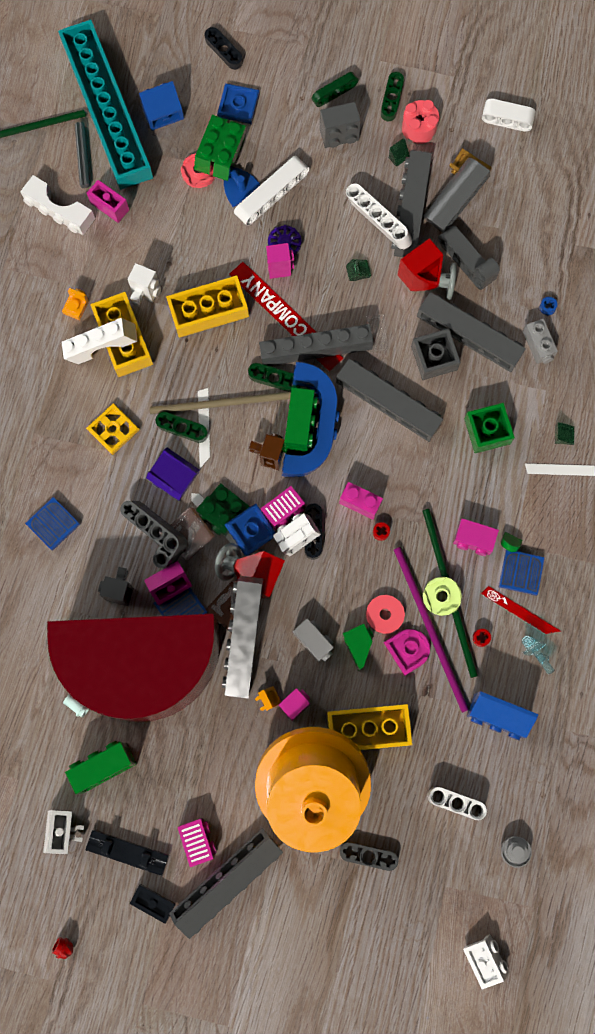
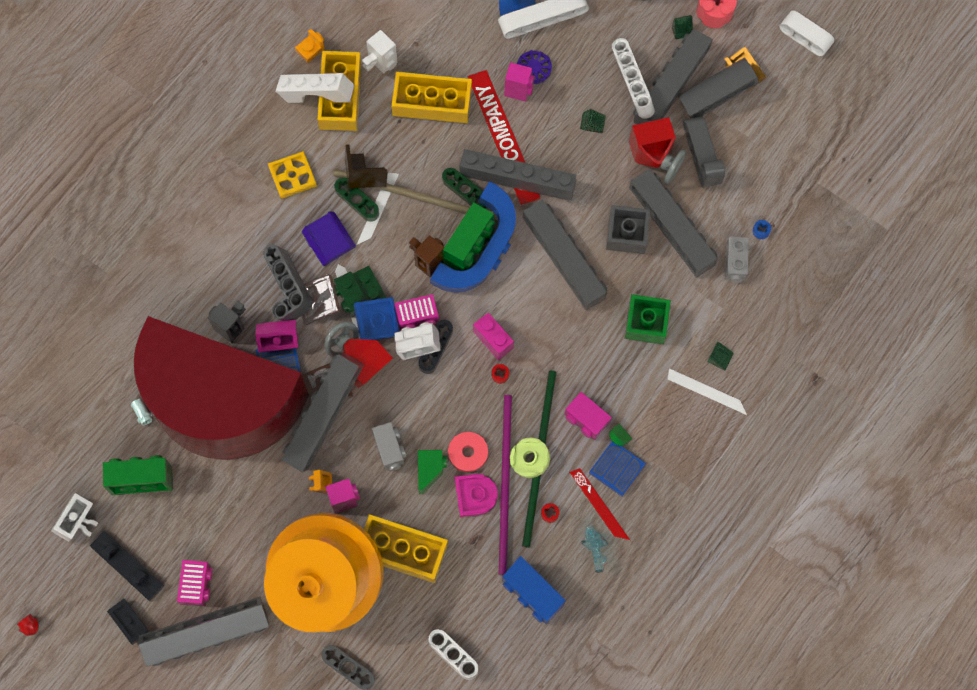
camera: 20 degrees right, 5 degrees down
(52, 523) = (196, 238): tile -> none
(174, 404) = (361, 177): none -> dark brown panel

